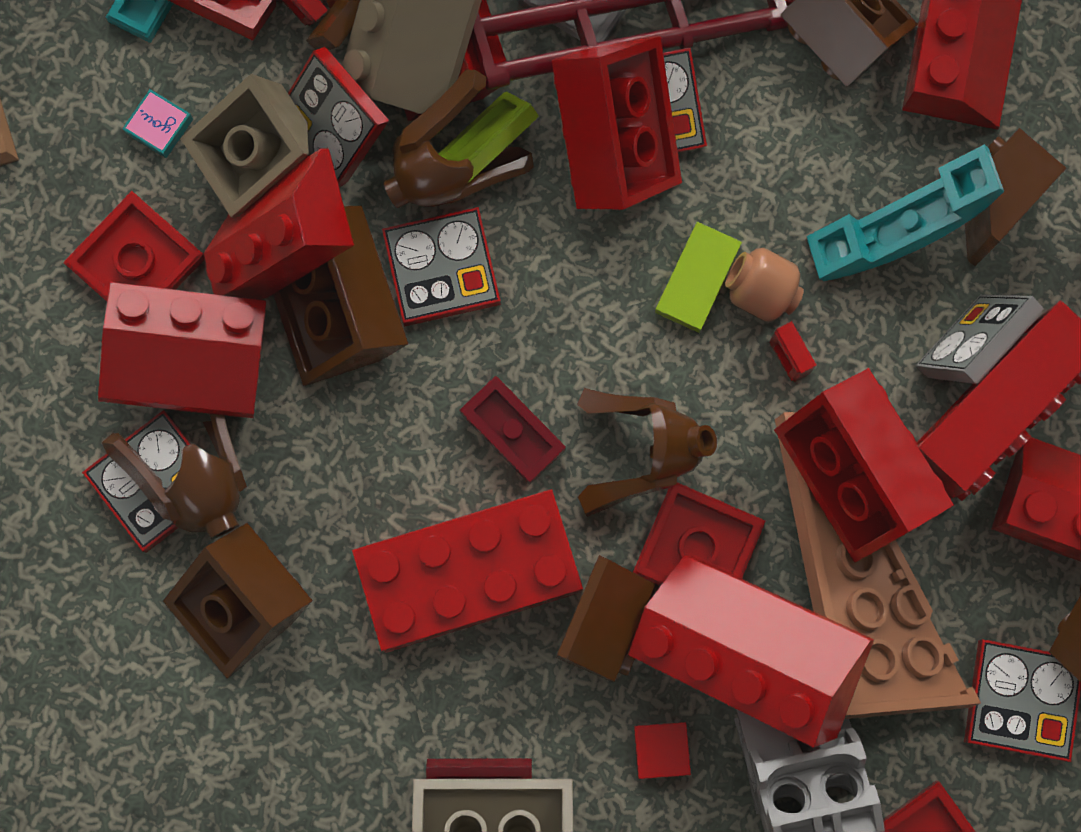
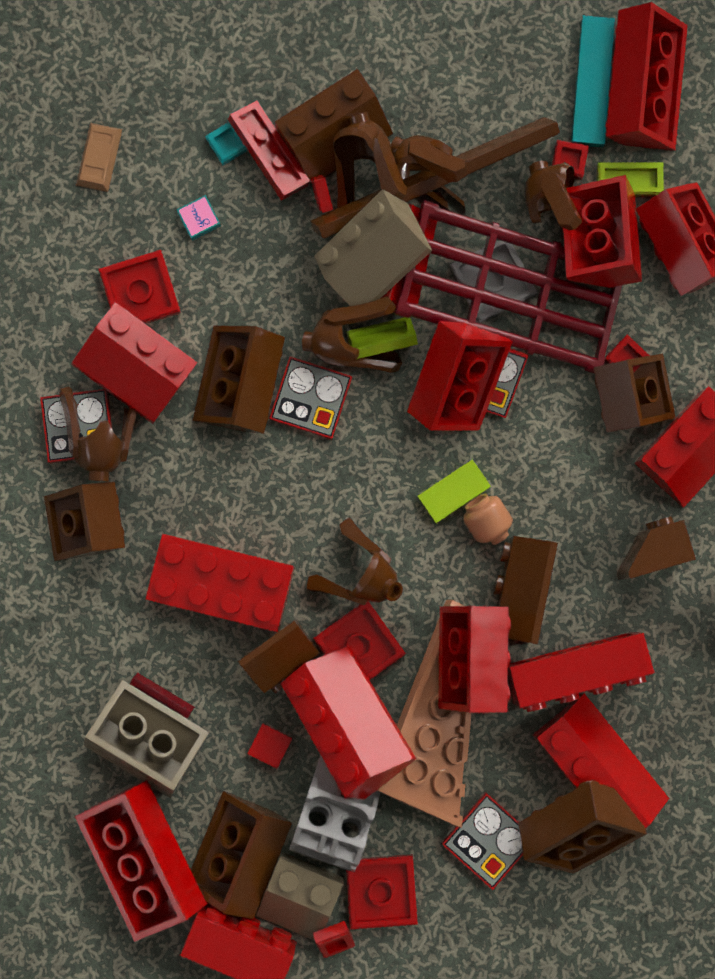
camera: 30 degrees right, 5 degrees up
(248, 142) = (241, 265): dark tan slope -> none
(281, 234) = (227, 327): red slope -> none
(336, 113) = (297, 275): tile -> none
(512, 429) = (294, 517): dark red plate -> none
(792, 352) = (479, 567): red tile -> none
(866, 330) = (525, 584): none -> reddish brown slope
(909, 223) = (590, 534): teal slope -> none
(980, 338) = (589, 624): tile -> none

